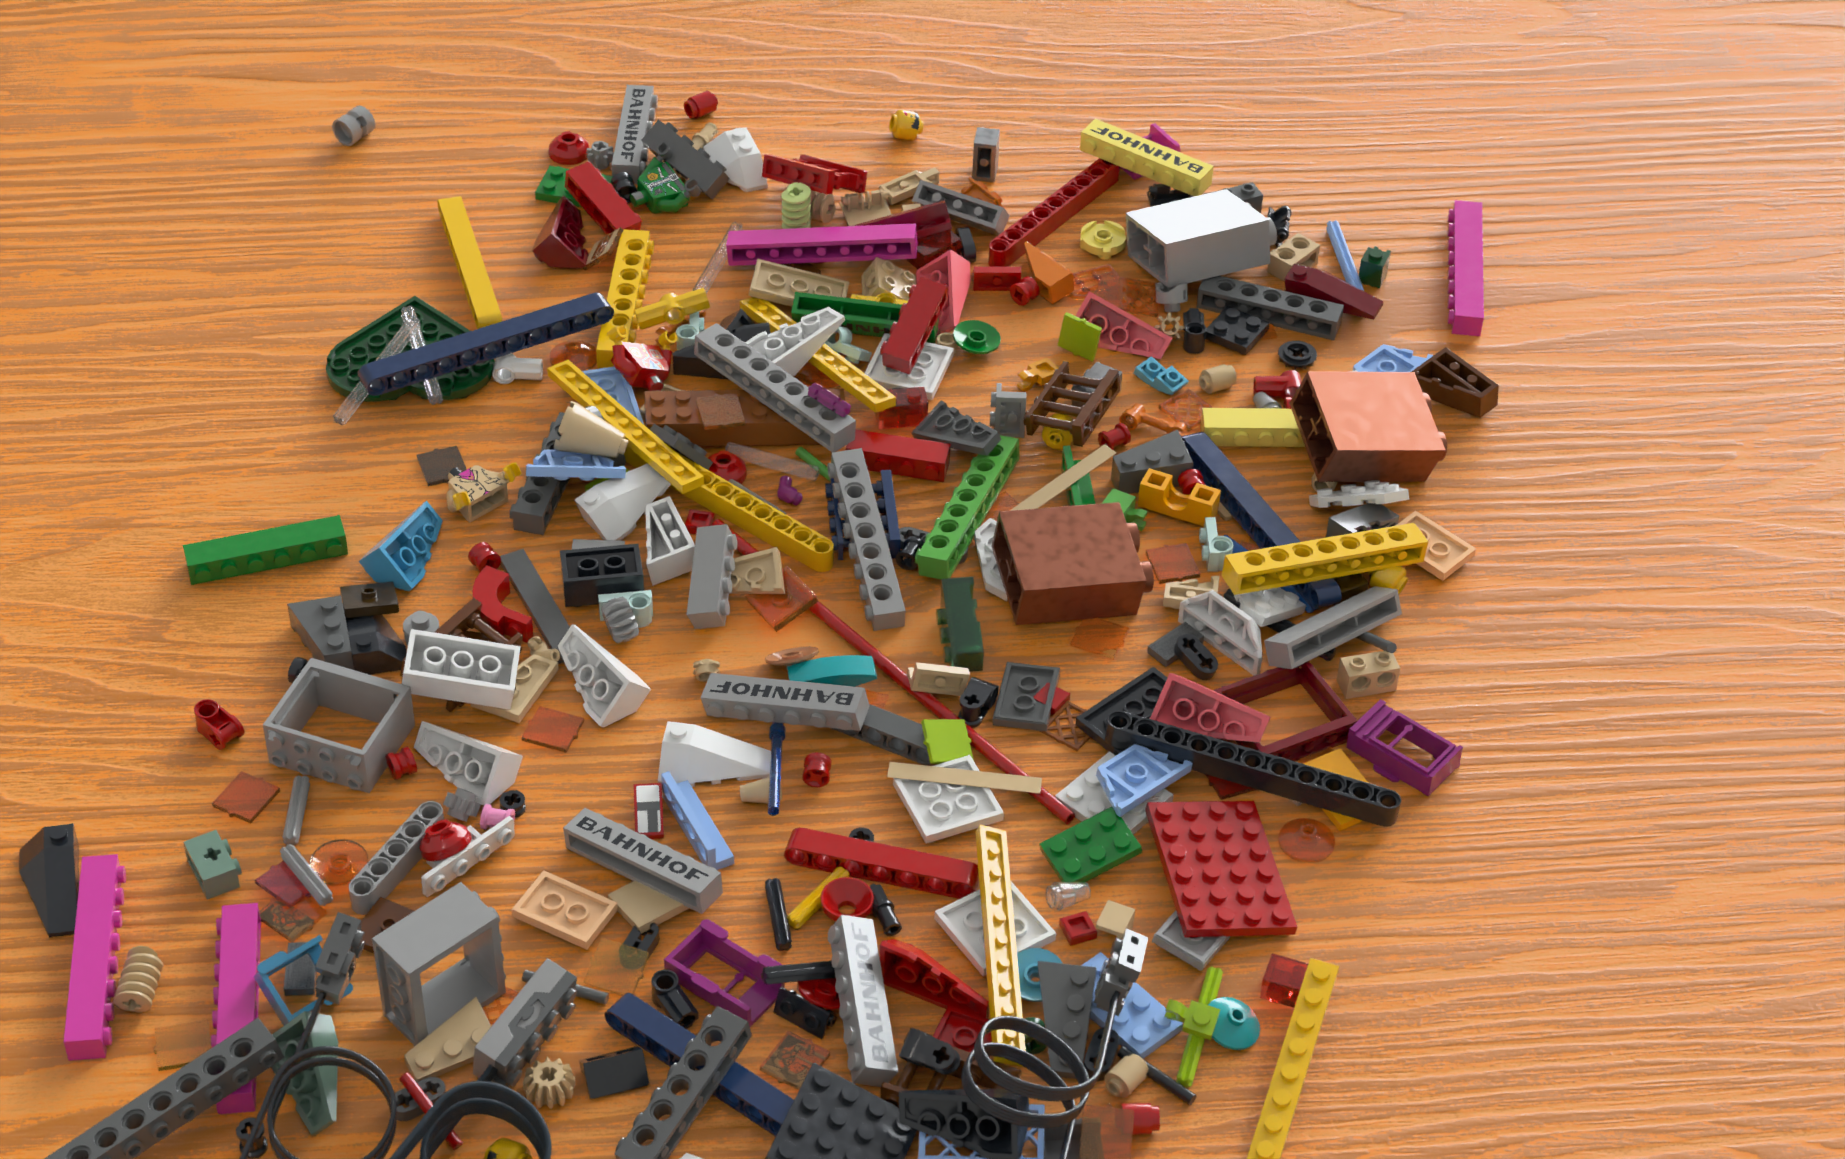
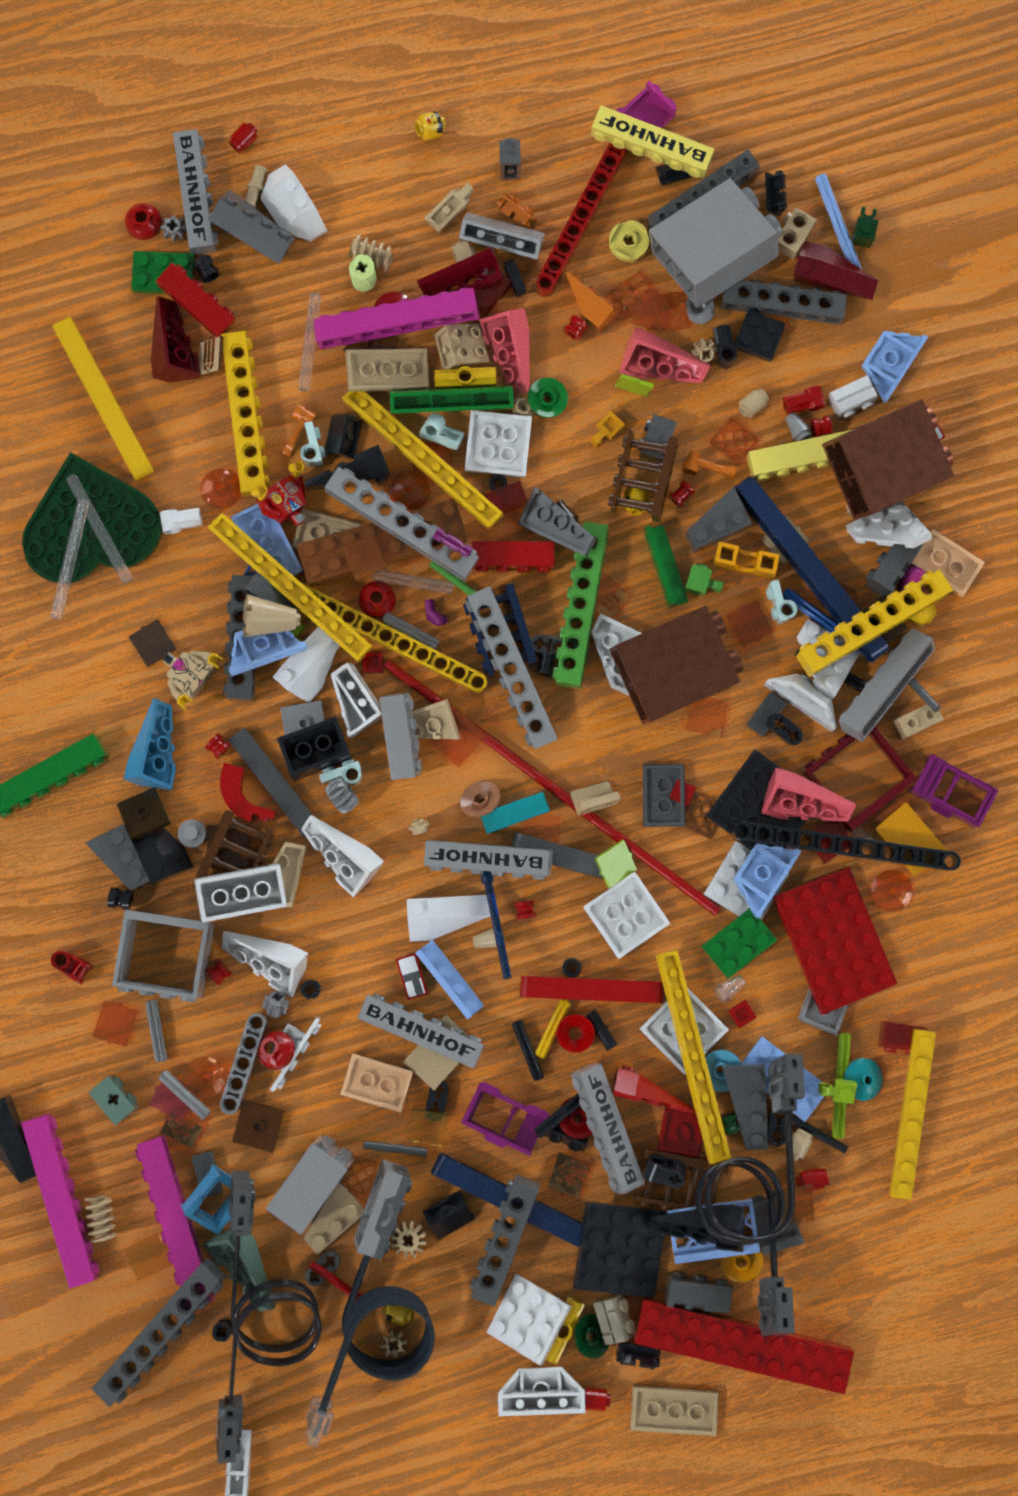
camera: 10 degrees left, 40 degrees up
(485, 344) = (151, 515): dark blue beam -> none
(492, 816) = (304, 1009): bright pink bush -> none
(540, 648) = (289, 833): tan arm -> none
(552, 729) = (318, 906): clear orange piece -> none
(661, 187) = (239, 265): torso -> none
(672, 308) = (291, 433): yellow piece -> none
(672, 999) = (476, 1150): black piece -> none
(682, 445) = (340, 597): dark grey plate -> none
(797, 343) = (400, 464): white wedge -> none
(815, 172) = (364, 241): red fence -> none
(861, 209) = (421, 251): tan hinge -> none
(914, 325) = (498, 415): red brick -> none
(959, 624) = (602, 744): clear green wedge -> none
(964, 777) = (635, 895): tan sticker -> none
(977, 701) = (628, 808): black piece -> none
(995, 278) = (548, 312): red panel -> none
(1008, 413) = (594, 494): light grey bracket -> none
(1066, 479) = (649, 573): tan sticker -> none
(1116, 919) = (769, 1012): tan panel -> none
(1160, 378) = (706, 408): medium azure slope -> none
(1178, 591) = (772, 660): tan wing -> none
(1188, 480) = (752, 537): red wheel -> none
(1290, 350) = (809, 346): black gear -> none
(1457, 384) = (949, 370): reddish brown wedge -> none
(1465, 268) = (942, 211): dark pink brick -> none

